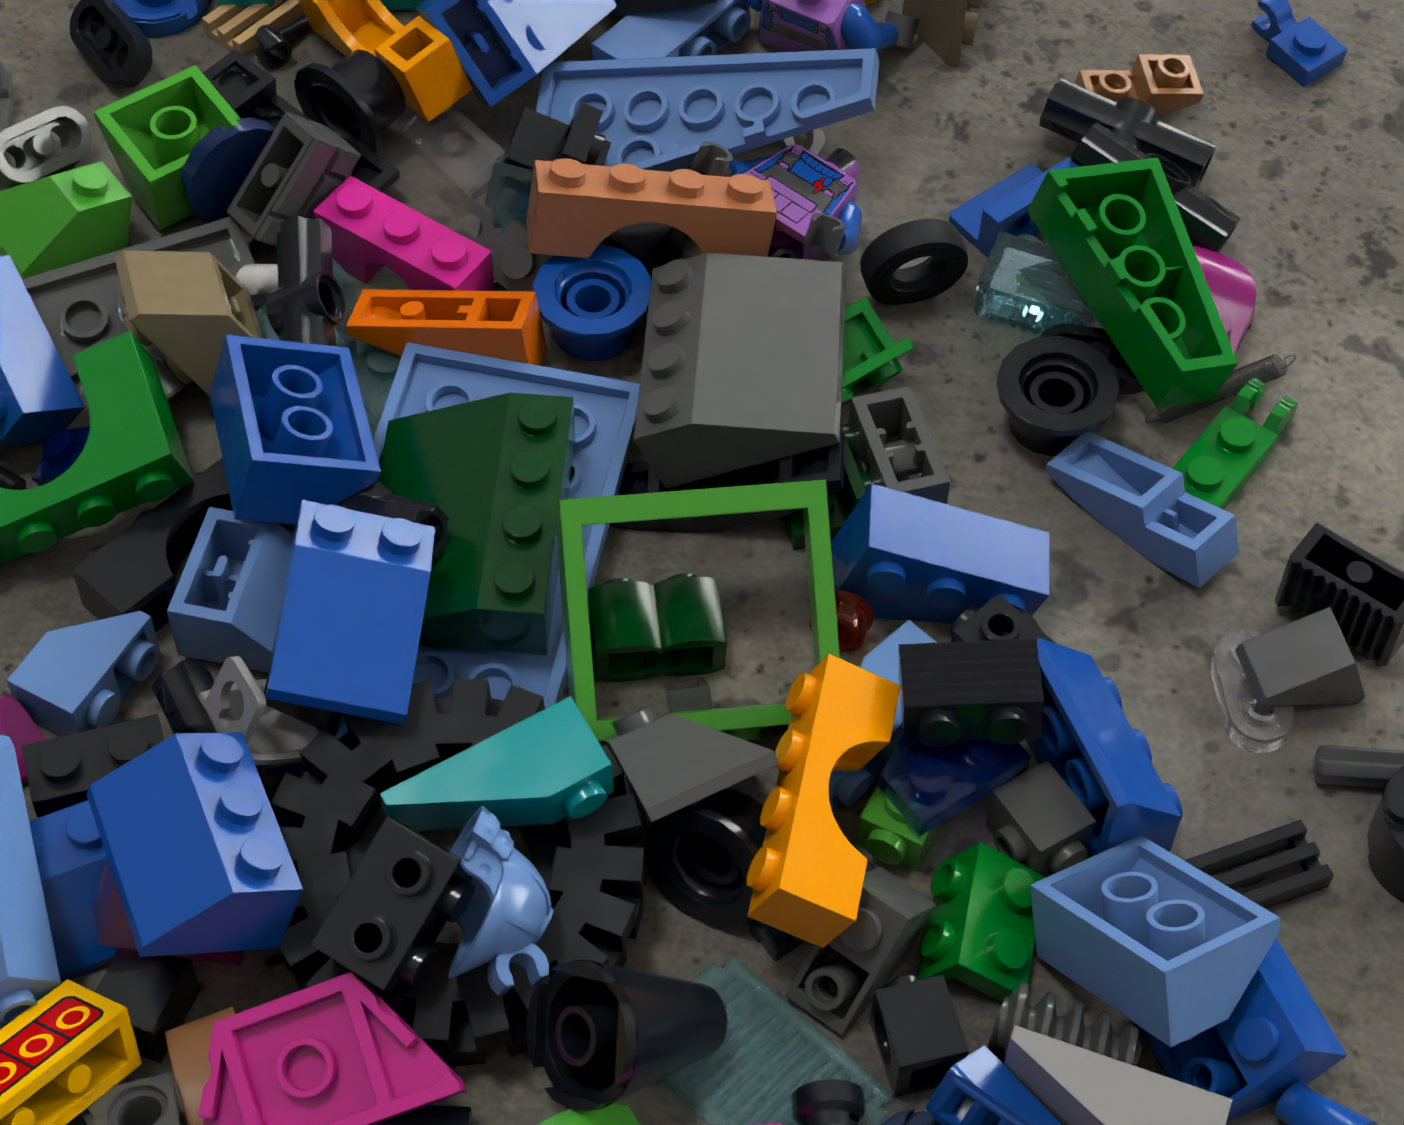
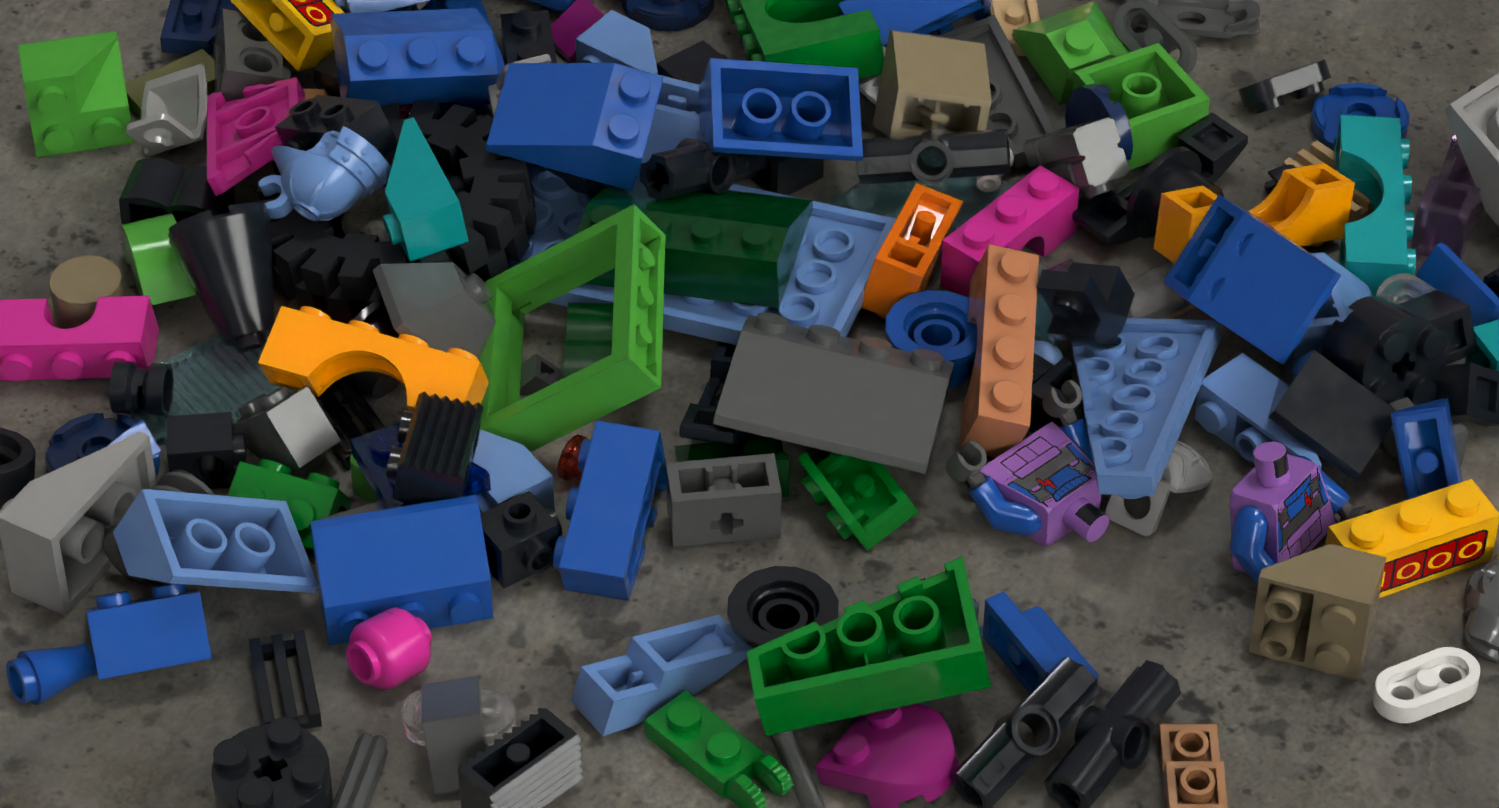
camera: 100 degrees right, 10 degrees down
(908, 242) = (949, 531): black tyre -> none
(1198, 757) = (389, 649): none -> dark pink head

